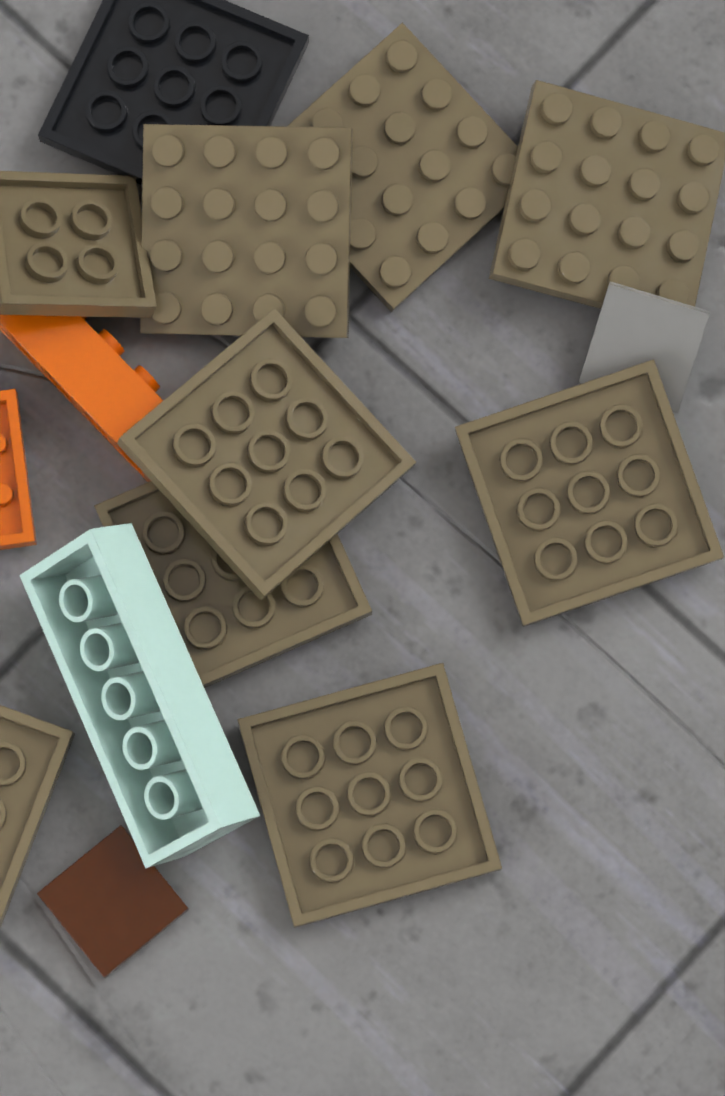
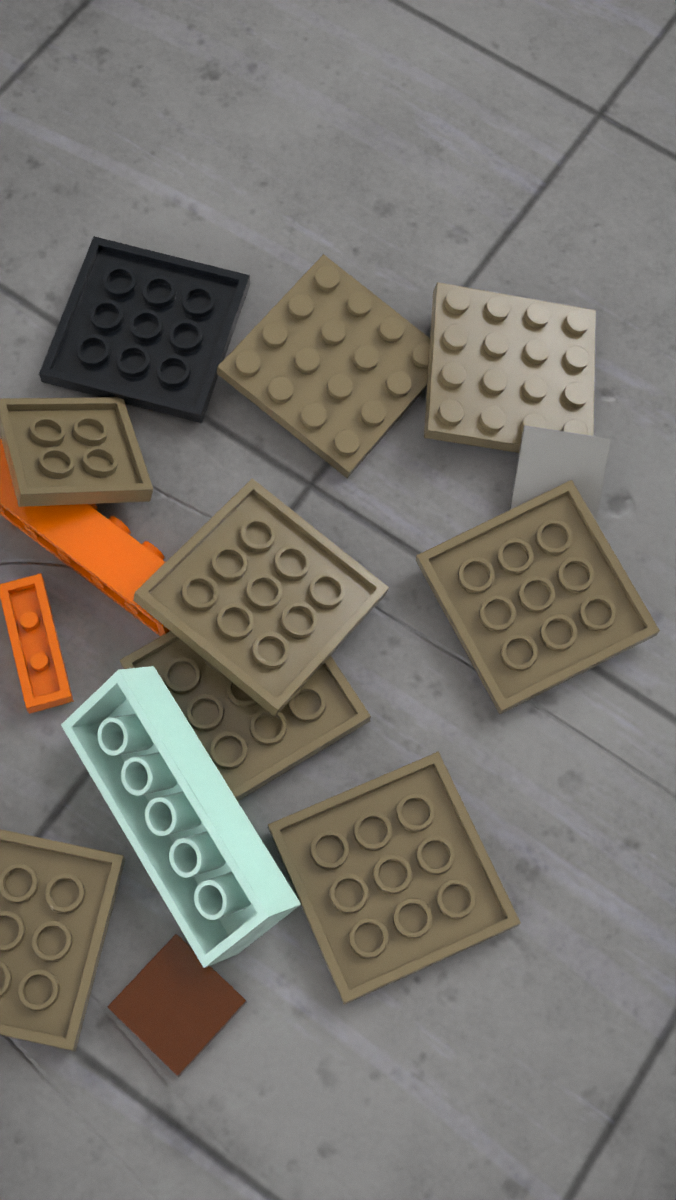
camera: 10 degrees left, 10 degrees down
(247, 227) = (218, 417): dark tan plate -> none

